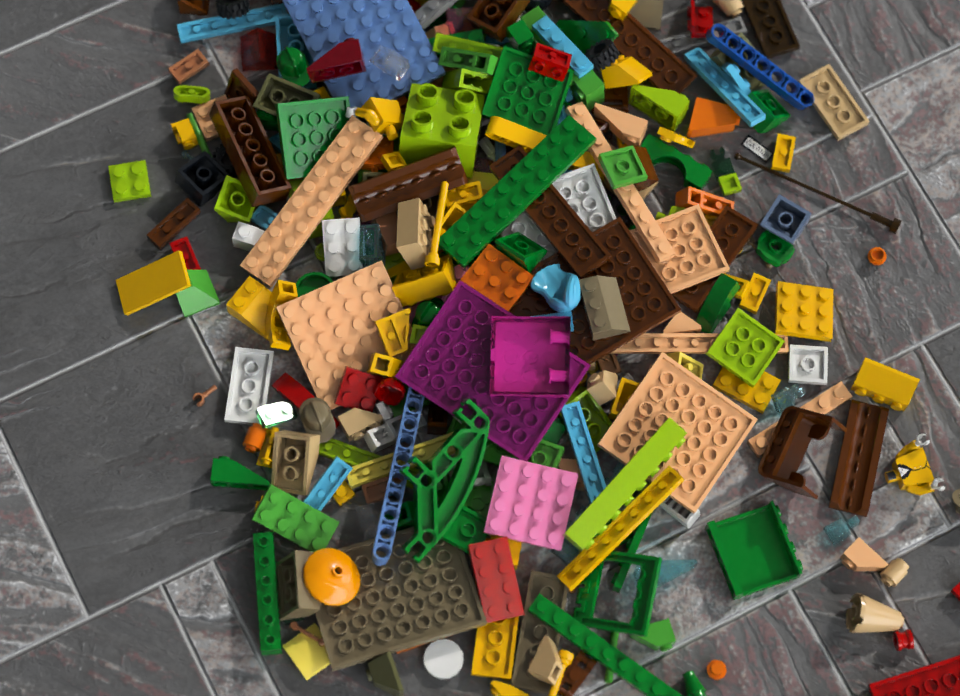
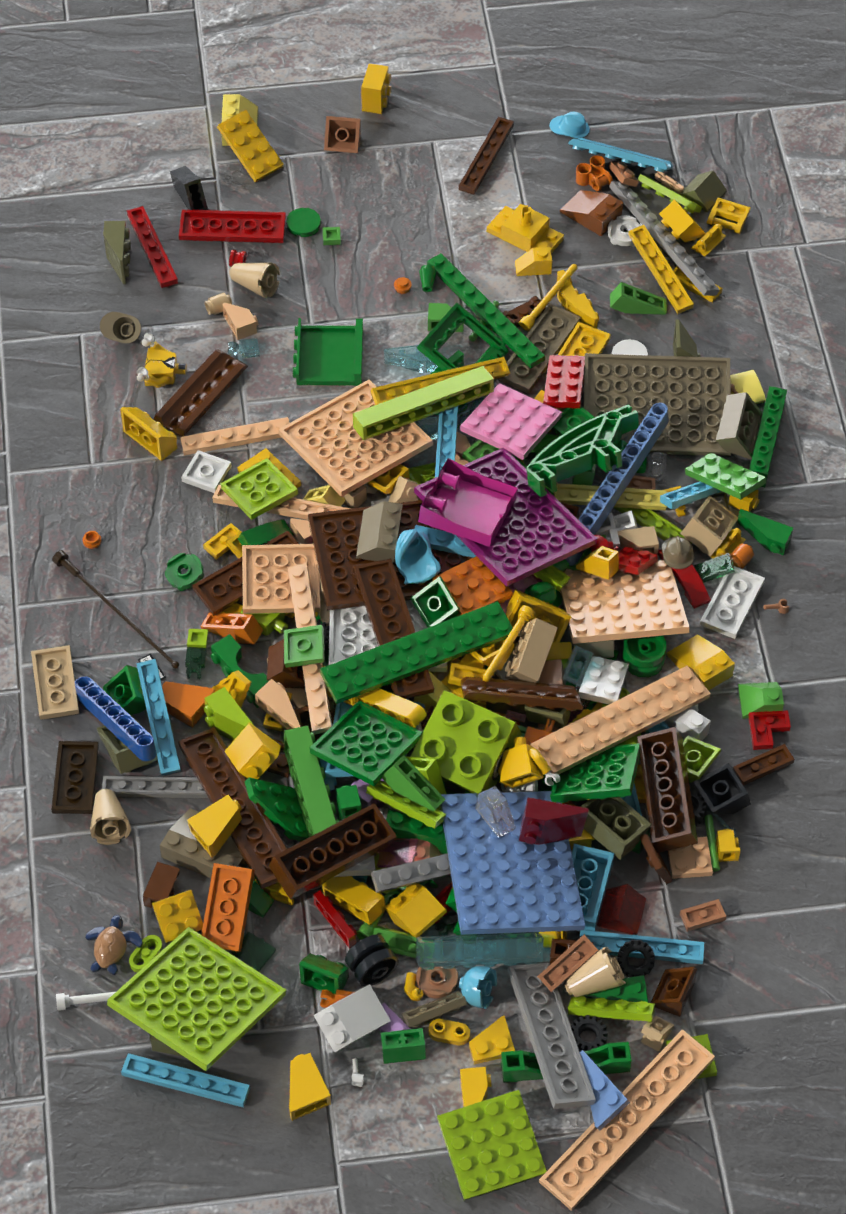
camera: 155 degrees left, 15 degrees down
(129, 181) = (797, 821): lime plate -> none
(153, 283) = (800, 704): yellow tile -> none
(191, 94) = (708, 884): lime plate -> none
(274, 328) = (686, 644): yellow arch -> none
(293, 66) = (594, 861): green piece -> none
(325, 583) = (708, 418): light orange dish -> none
(393, 160) = (528, 718): yellow plate -> none
(394, 332) = (581, 585): yellow wing -> none
(546, 663) = (545, 313): tan slope -> none
(550, 62) = (330, 753): red bracket -> none
(558, 40) = (309, 779): medium azure plate -> none
(602, 54) = (284, 767): black tyre -> none
(700, 20) = (146, 795): red bracket -> none
(732, 72) = (143, 716): medium azure plate -> none
(783, 153) = (130, 650): yellow plate -> none
(786, 219) = (163, 584): sand blue slope -> none
(786, 397) = (241, 451): clear light blue plate -> none
(789, 446) = (275, 394): reddish brown windscreen -> none
(804, 311) = (186, 511): yellow plate -> none

